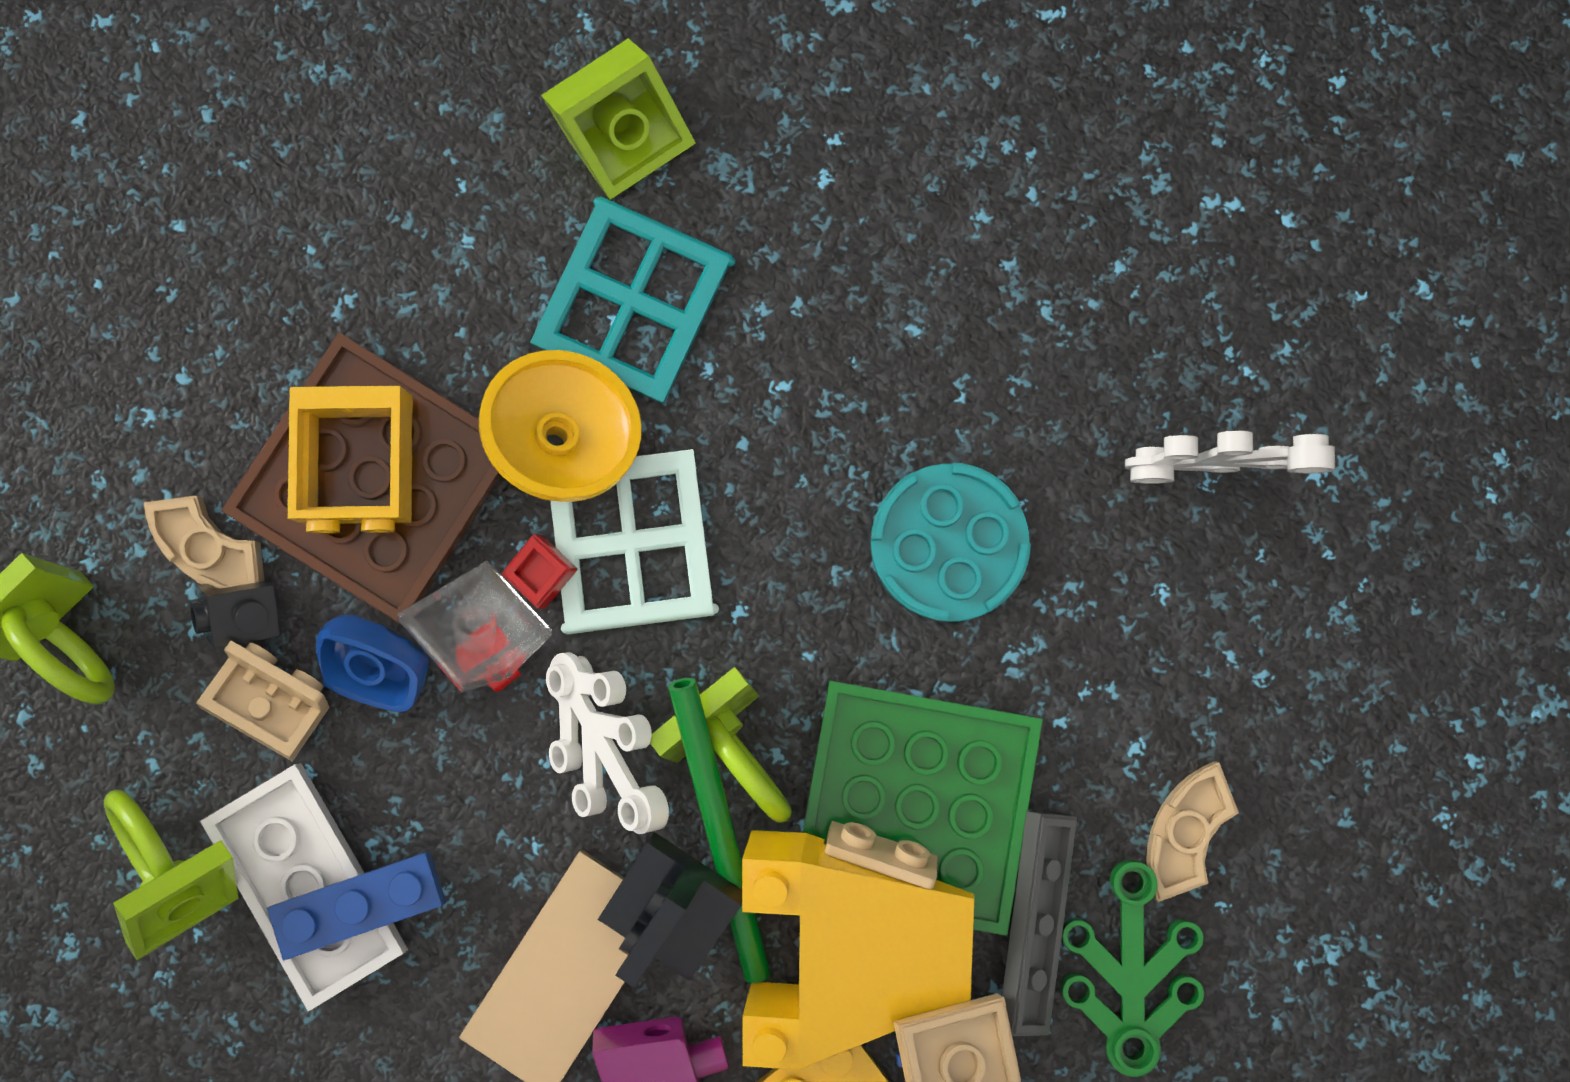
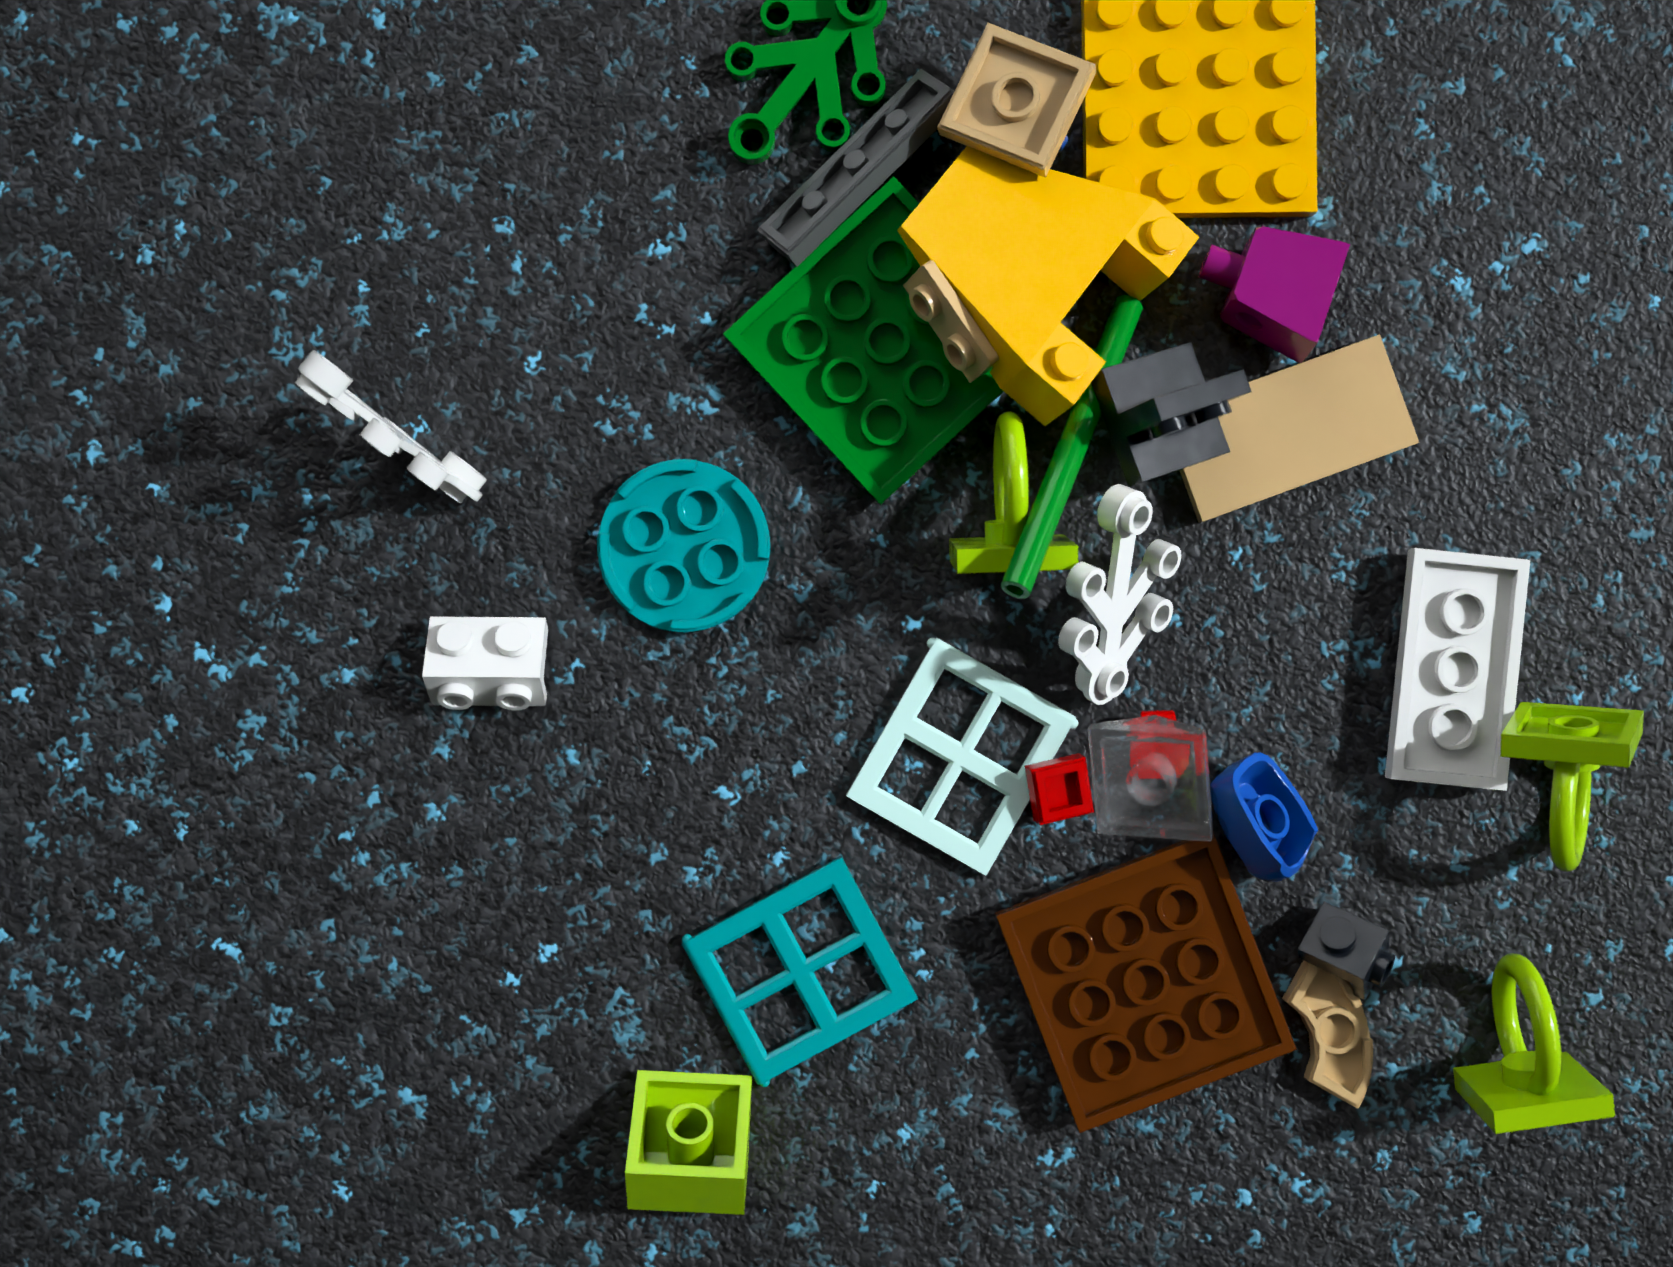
camera: 135 degrees left, 5 degrees up
(265, 700) = (1377, 853): tan bracket -> none
(305, 409) = (1158, 1082): yellow window -> none
(356, 905) = (1425, 617): blue plate -> none
(565, 398) = (915, 909): yellow dish -> none
(1028, 349) = (486, 662): none -> white bracket
(1184, 829) = (672, 150): tan tile -> none

